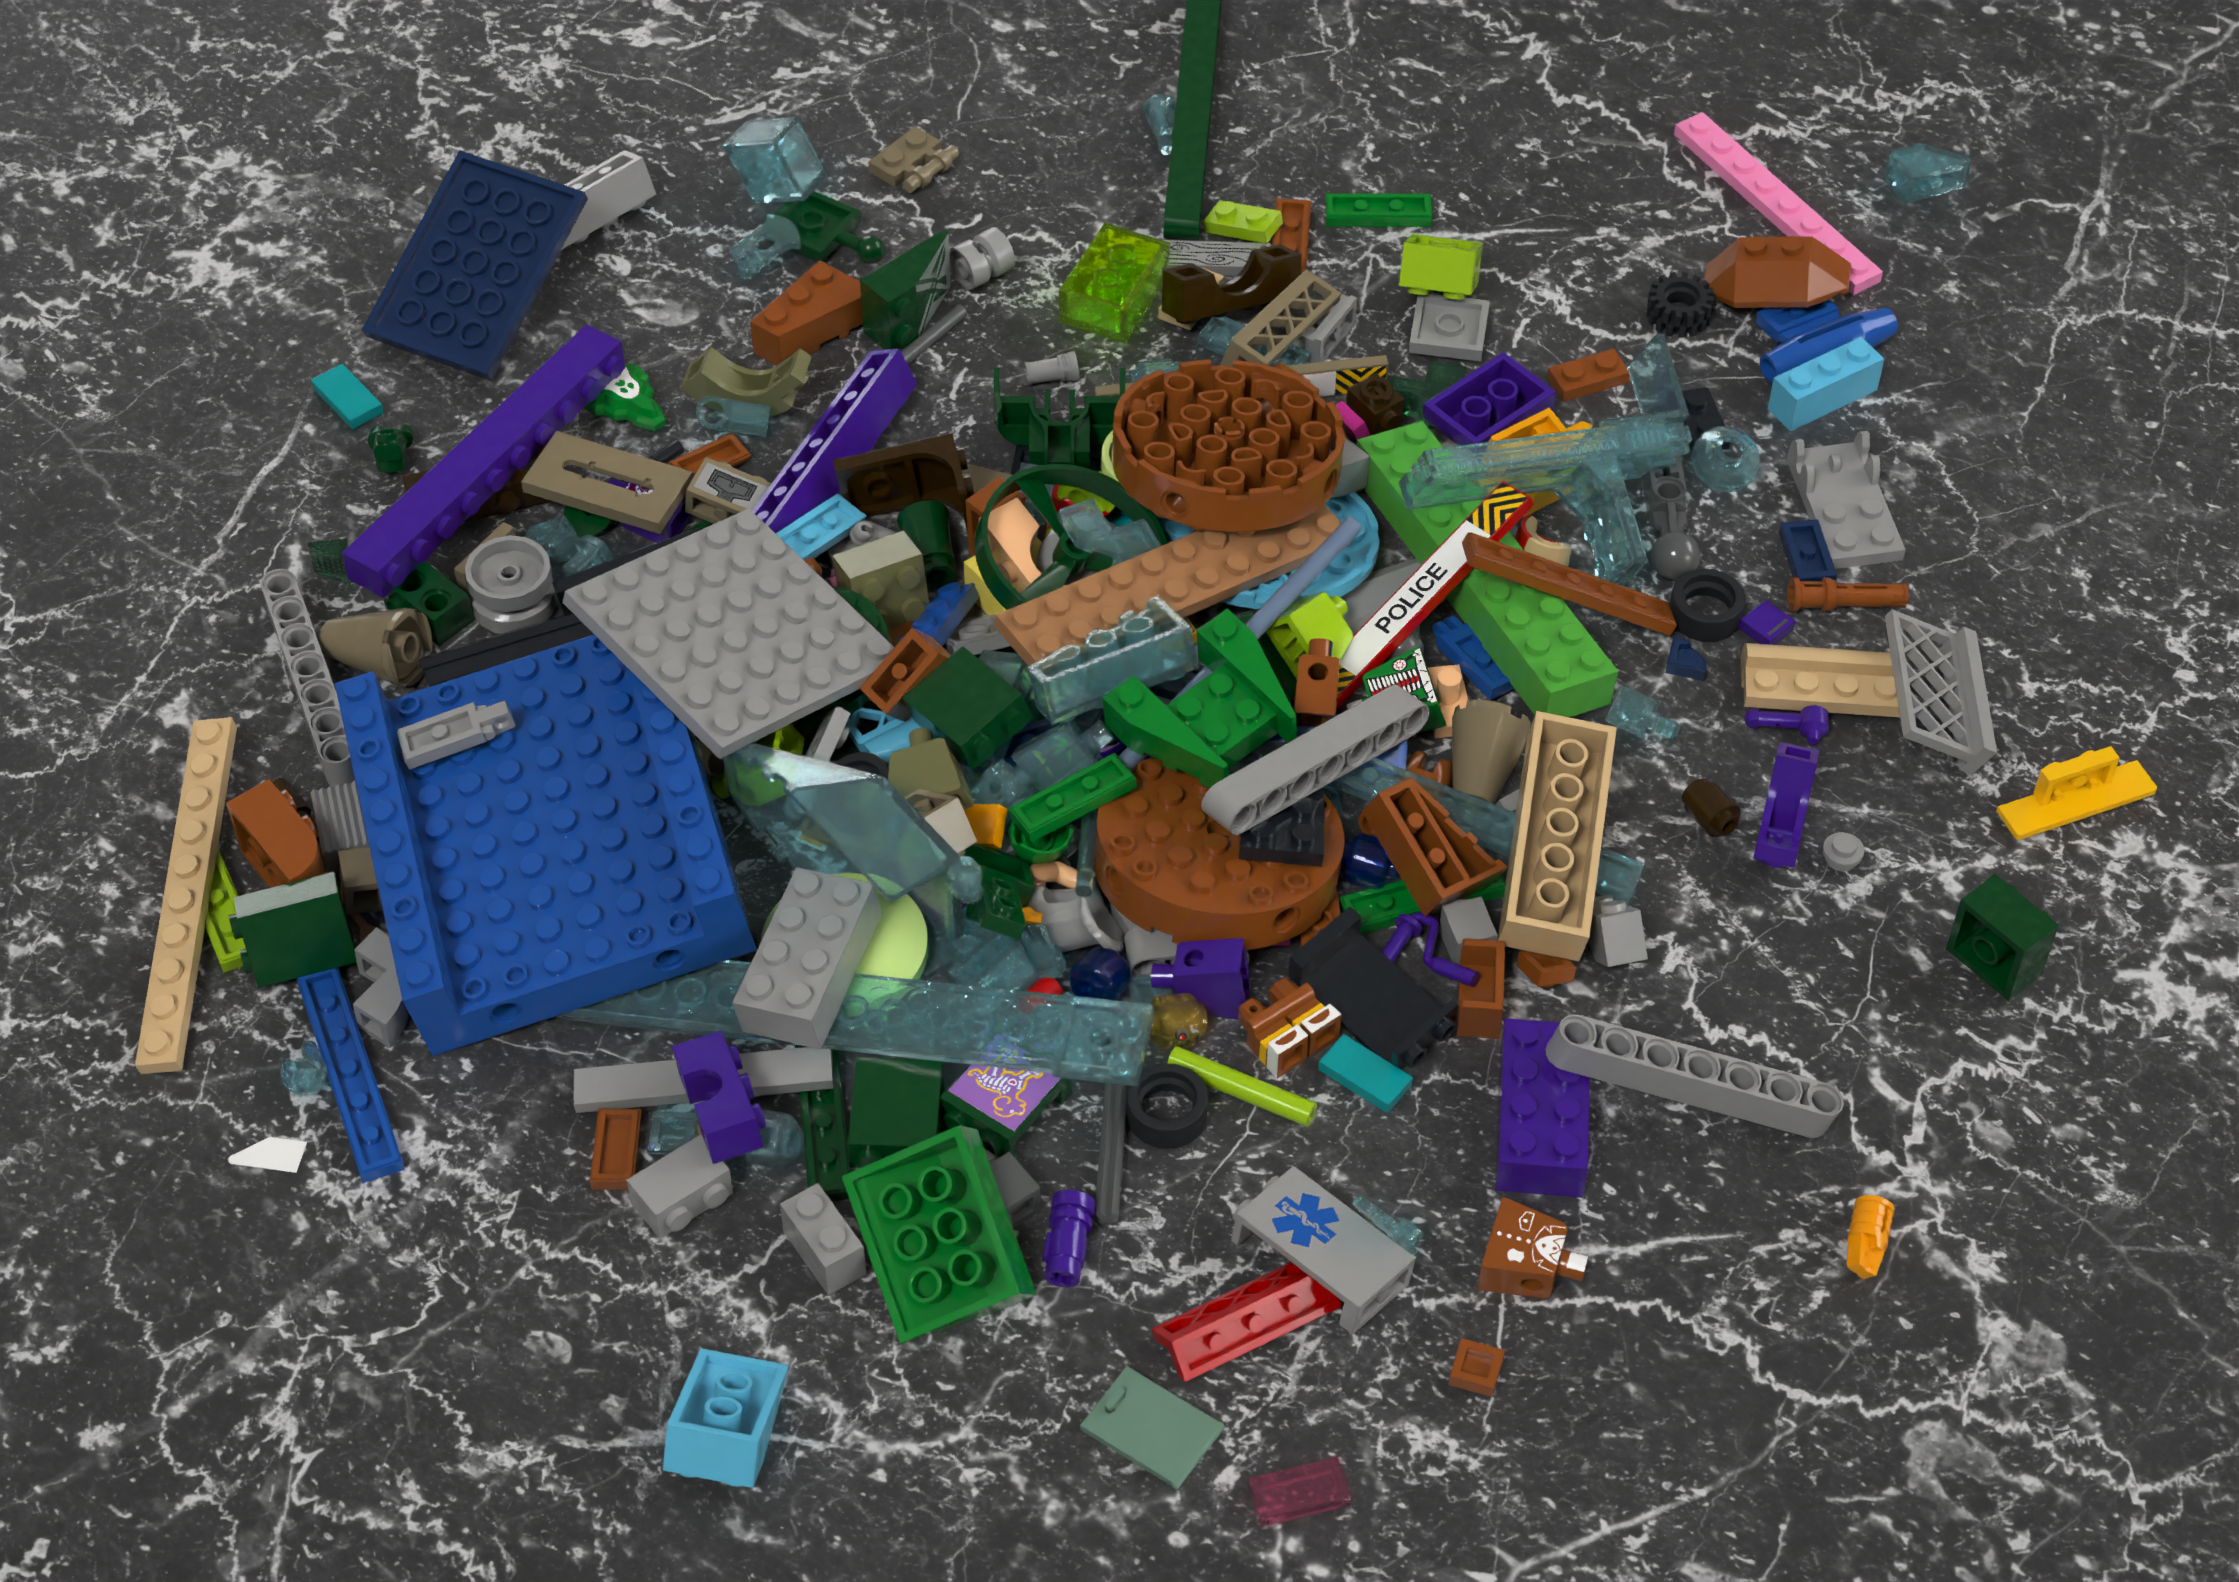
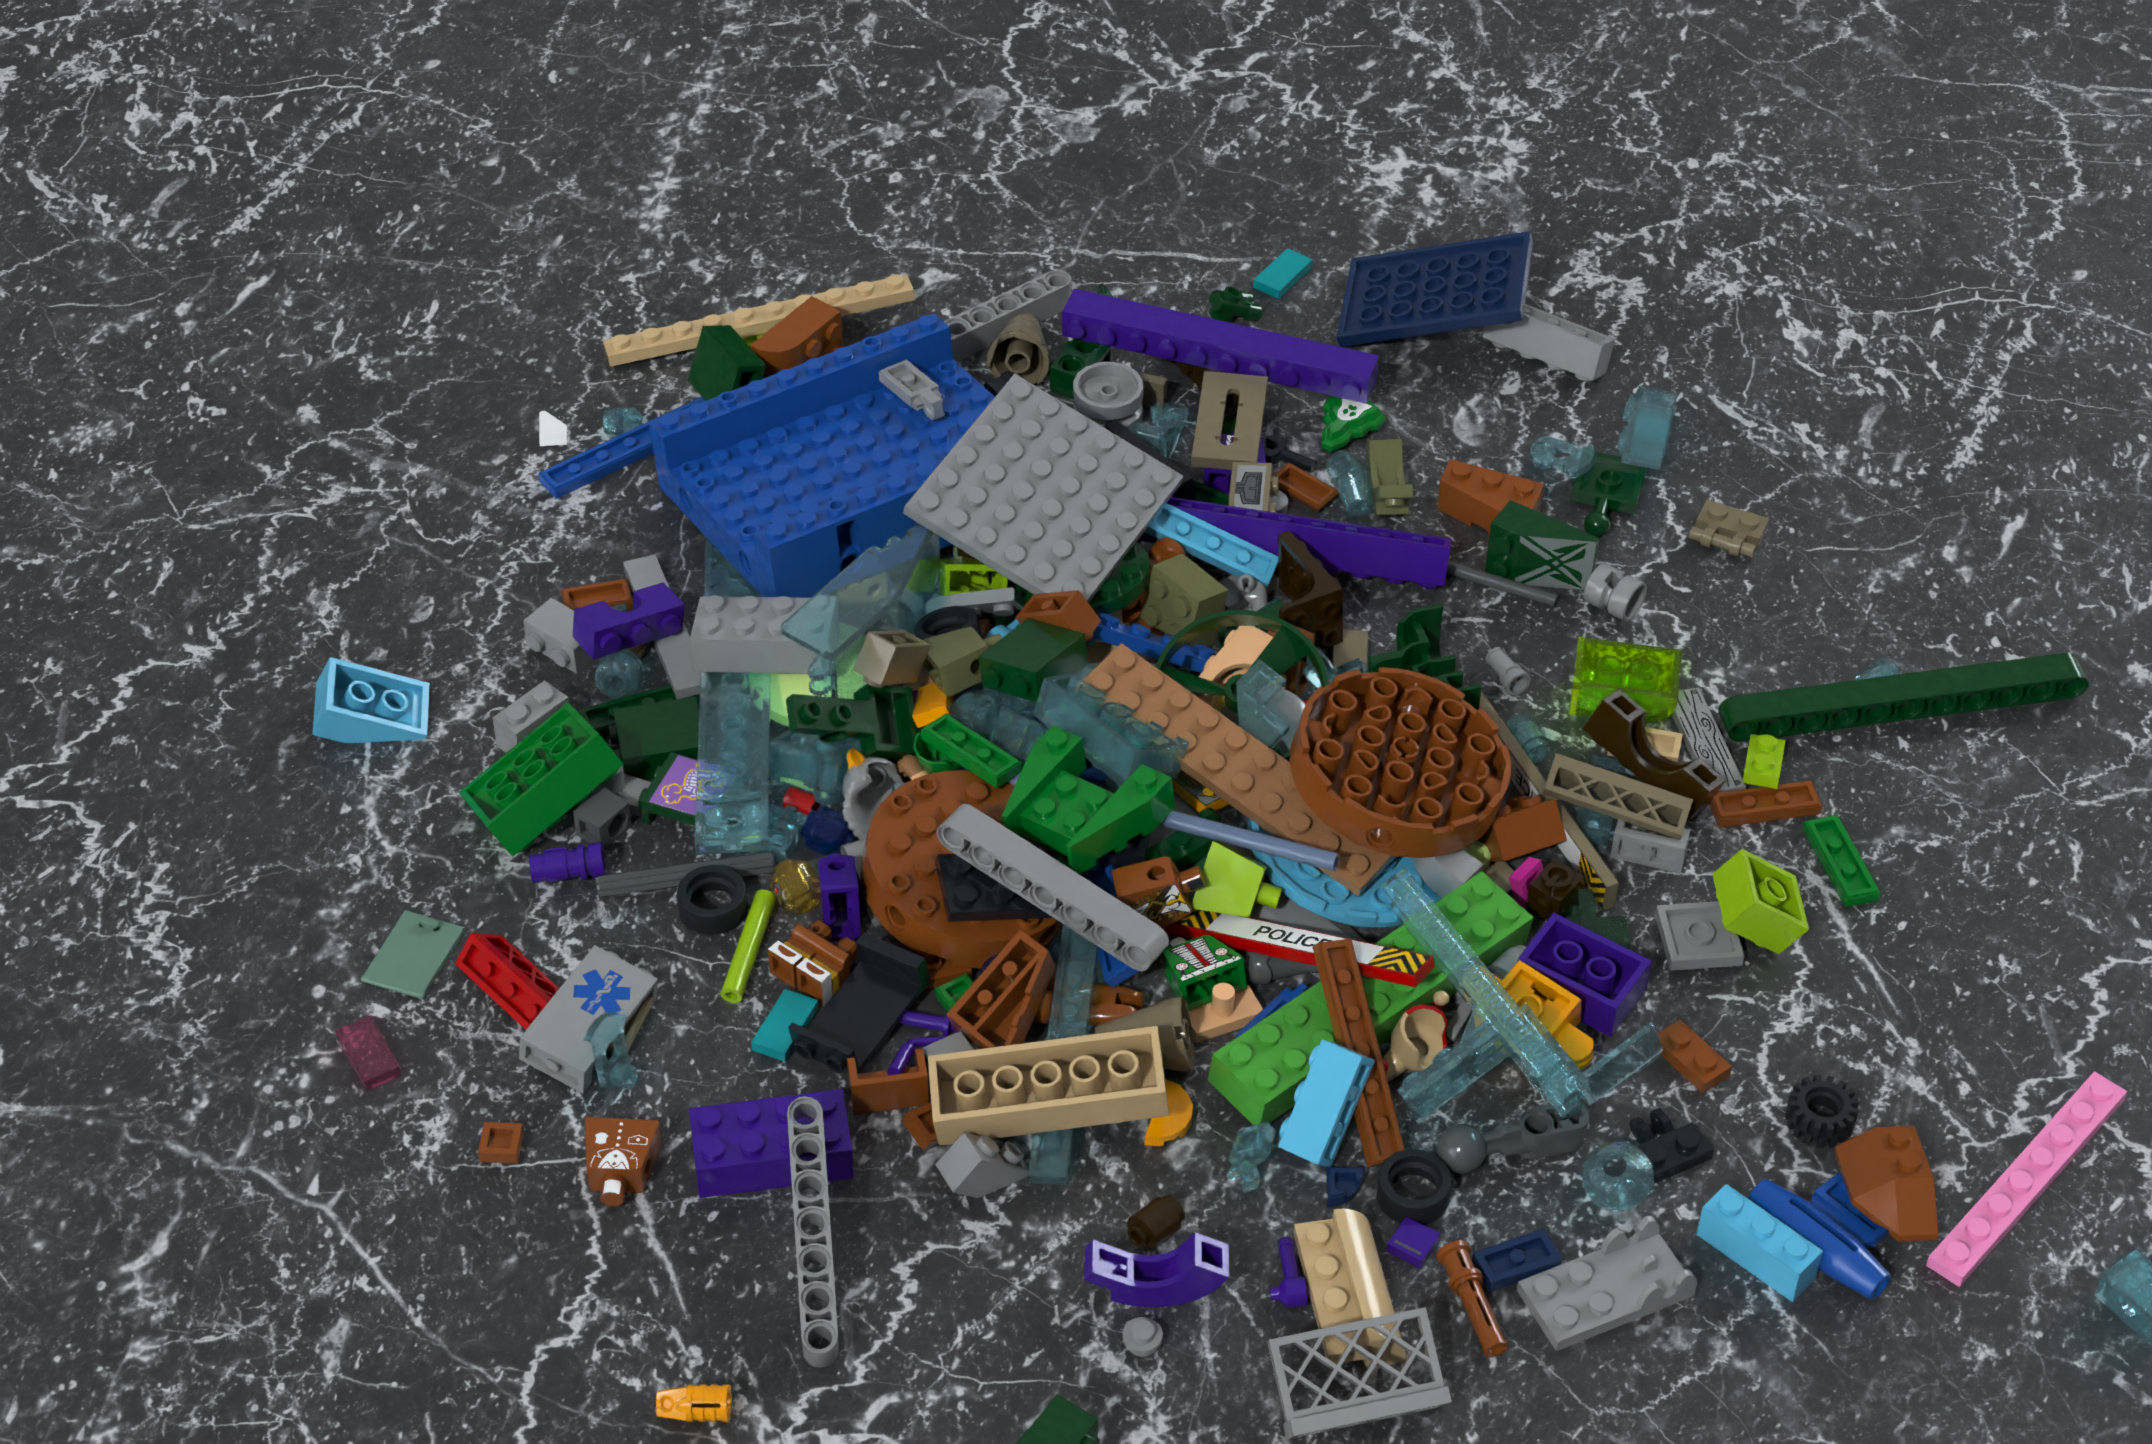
camera: 75 degrees right, 5 degrees down
(1622, 626) = (1325, 1103): none -> medium azure brick

